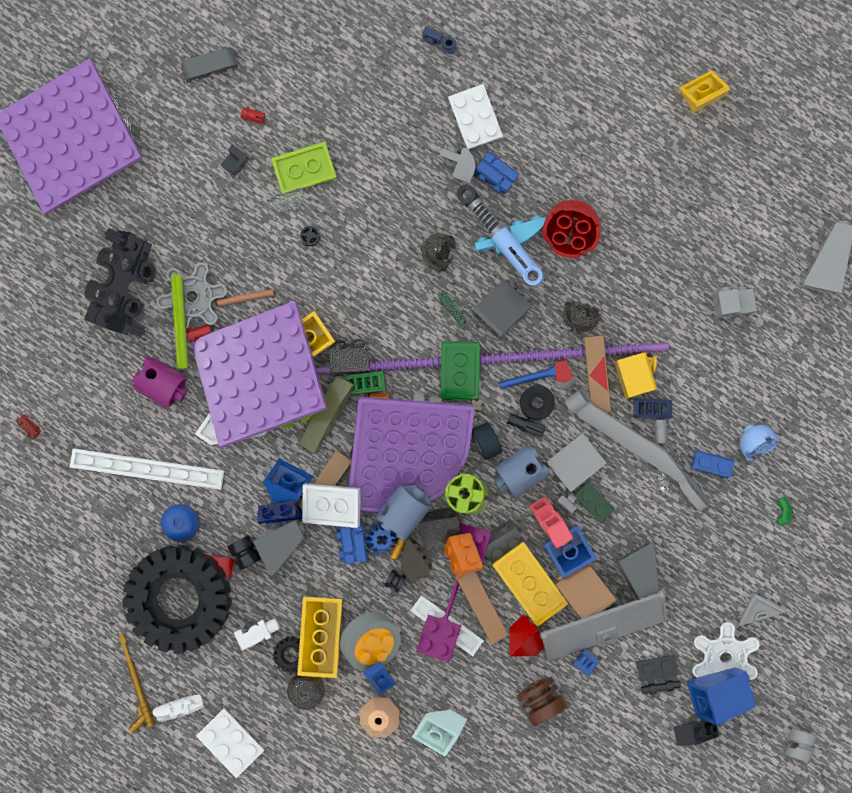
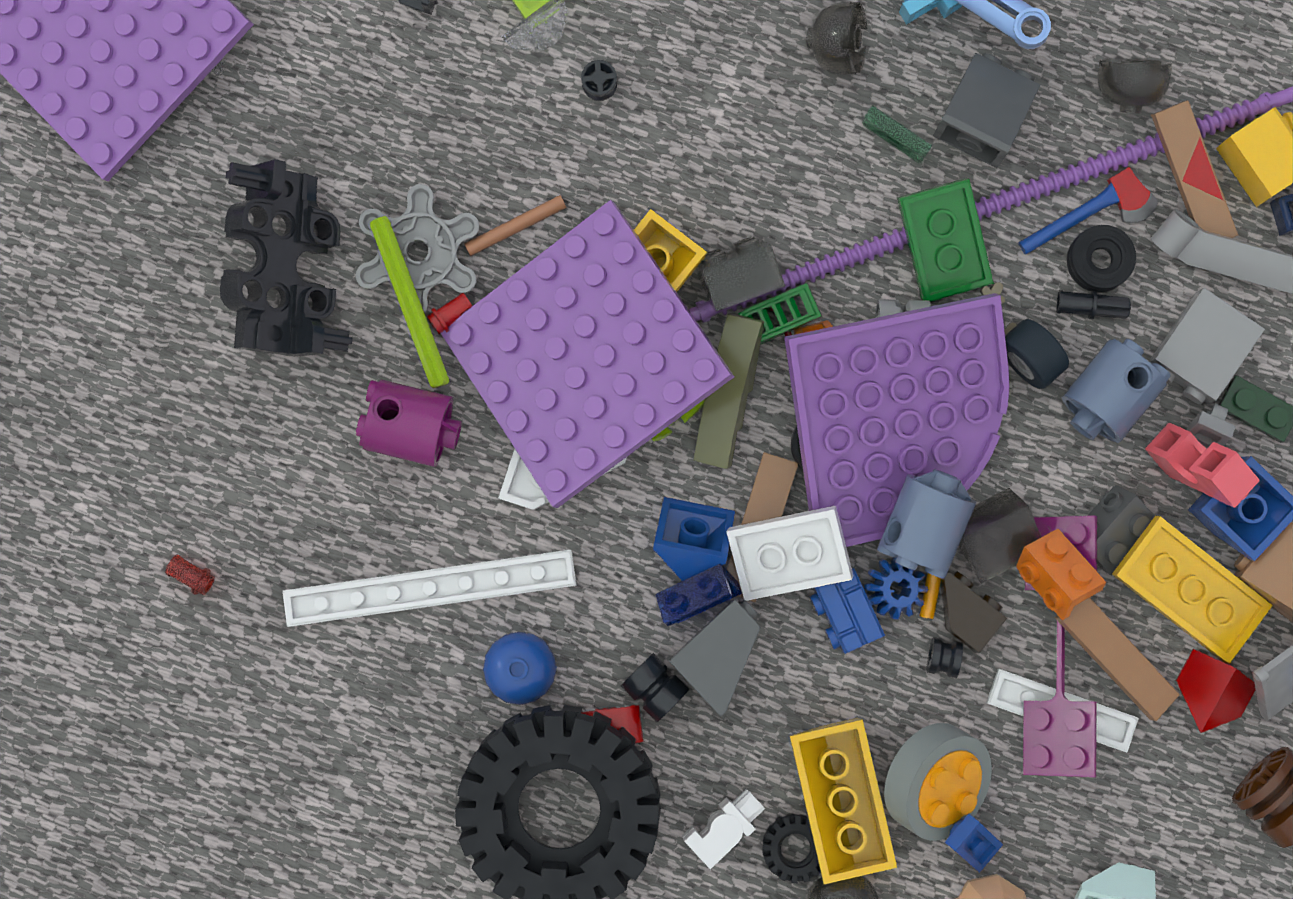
camera: 15 degrees left, 0 degrees up
(475, 502) = (1019, 476): lime cylinder -> none

